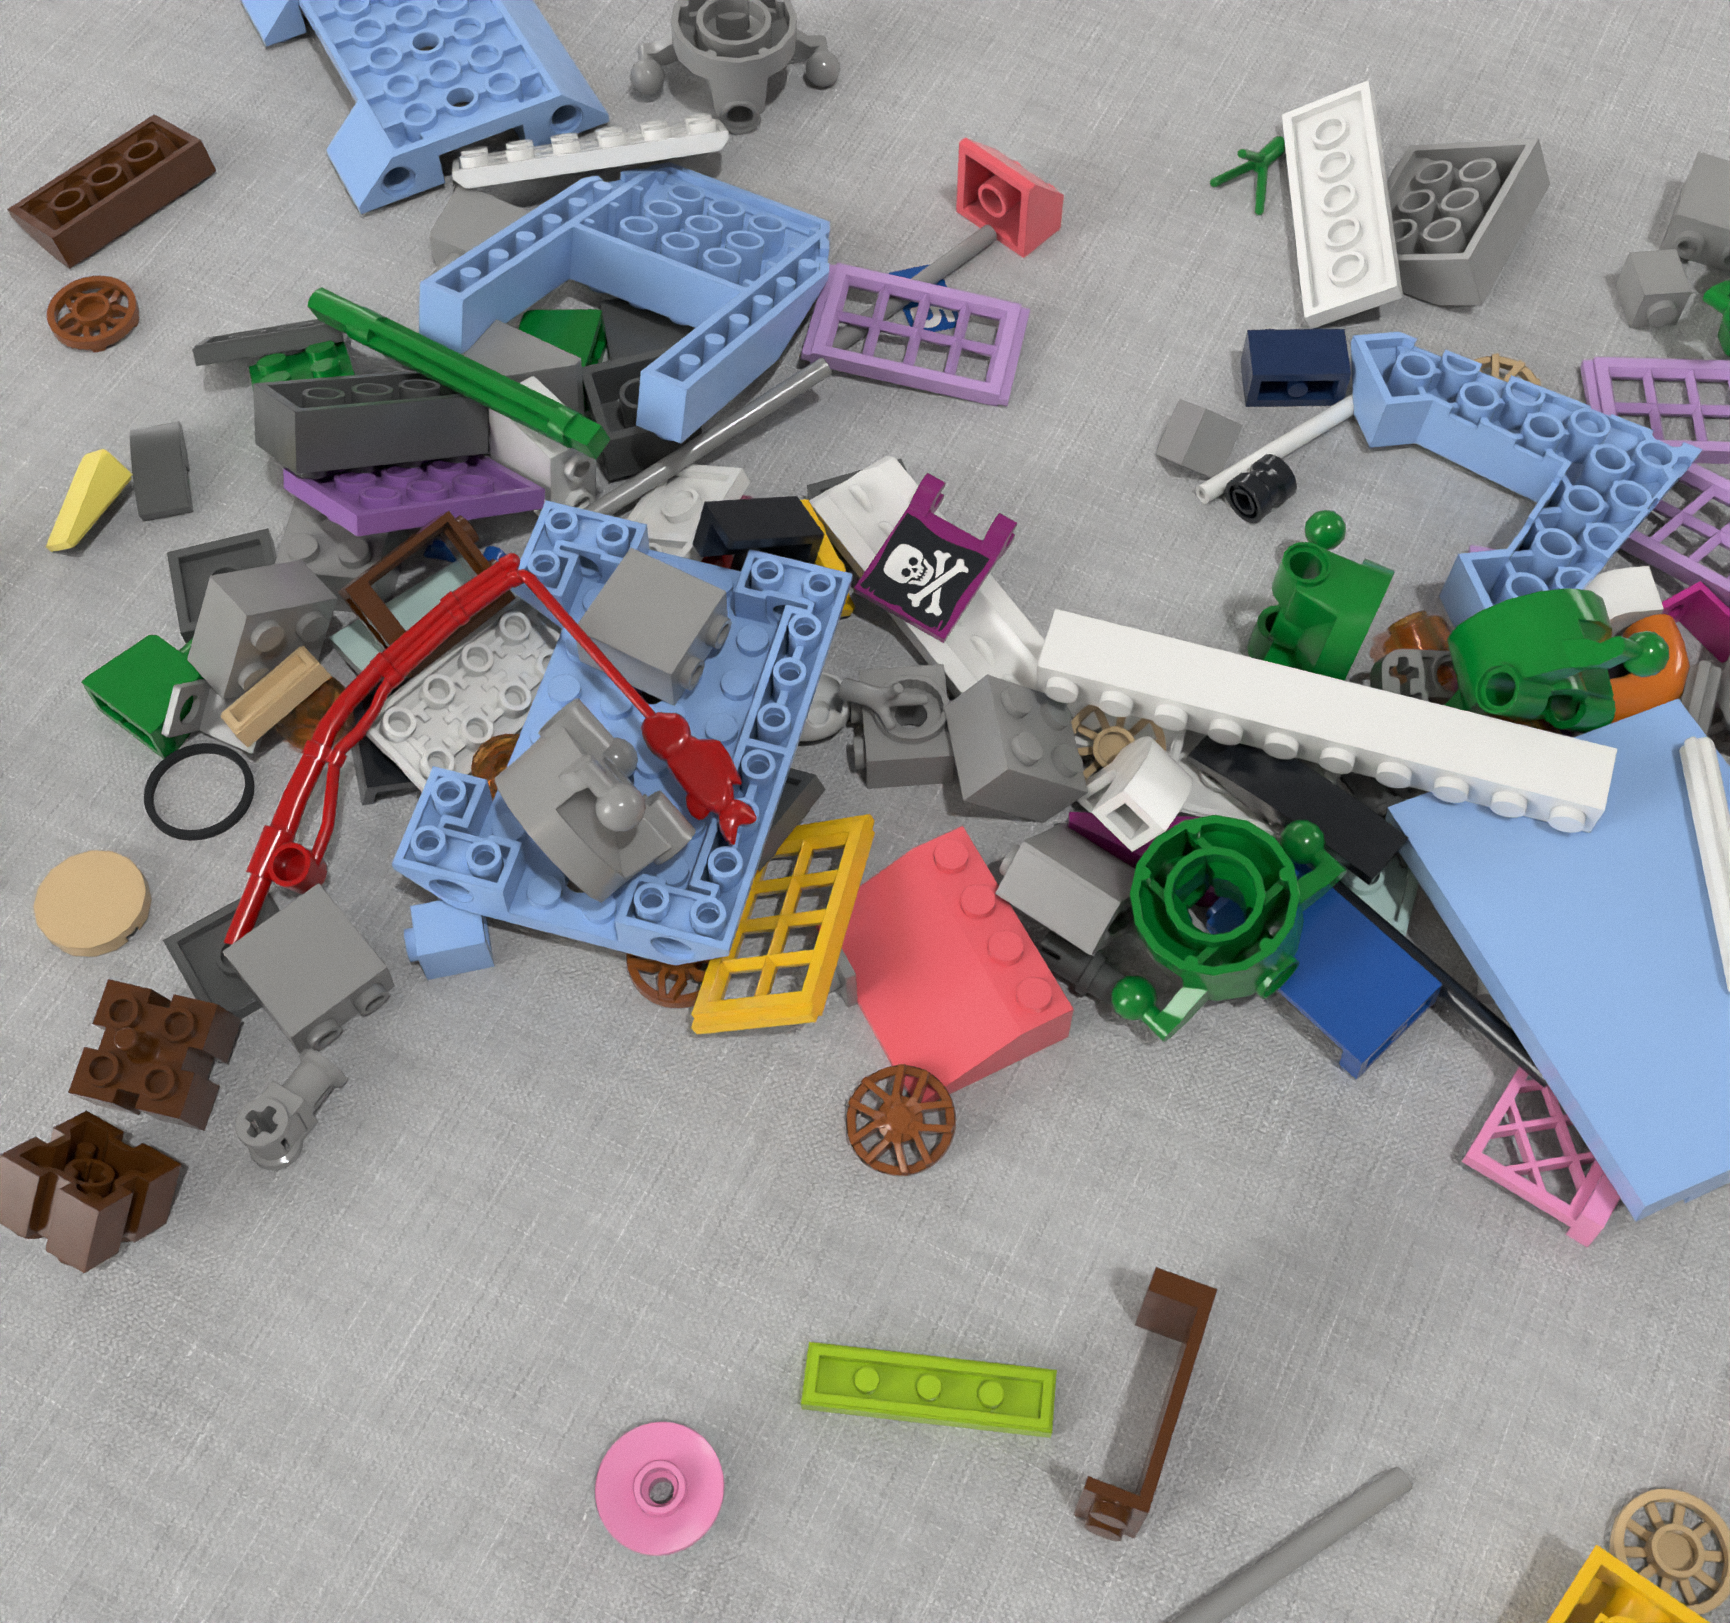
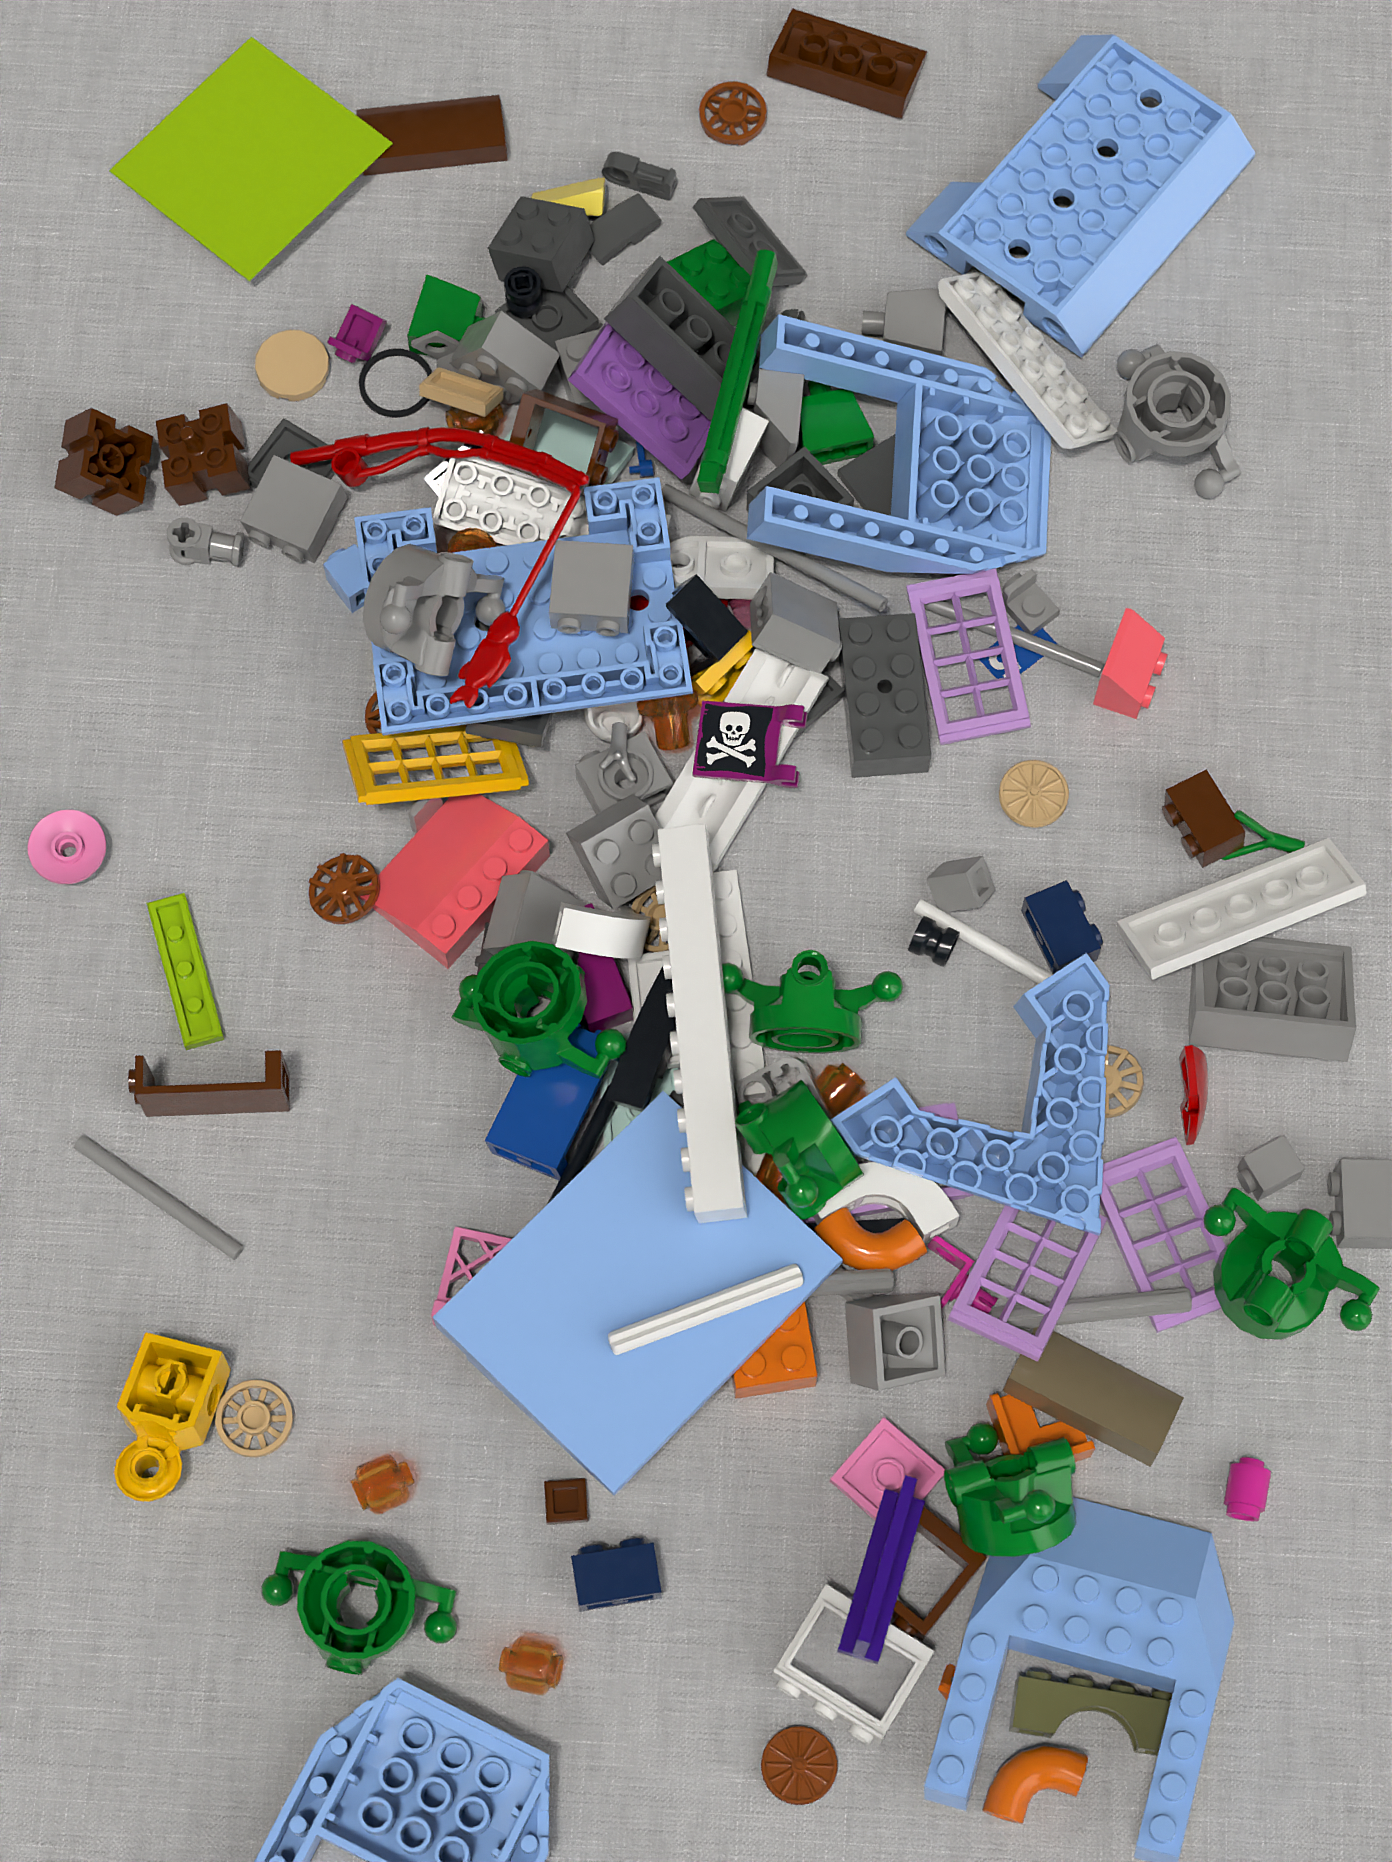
camera: 65 degrees right, 10 degrees up
(105, 801) = (358, 334): none -> magenta bracket
(109, 421) = (639, 176): none -> dark grey piece
(128, 542) = (544, 238): none -> dark grey brick
(179, 580) = (523, 291): none -> black wheel
(804, 457) = (795, 624): none -> light grey piece
(858, 642) = (670, 719): none -> clear orange gear
(884, 256) = (1028, 603): none -> light grey bracket
(929, 417) = (884, 696): none -> dark grey brick
(1111, 340) = (1033, 793): none -> tan wheel
(1218, 198) = (1203, 819): none -> reddish brown brick
(1547, 310) = (1195, 1083): none -> red brick

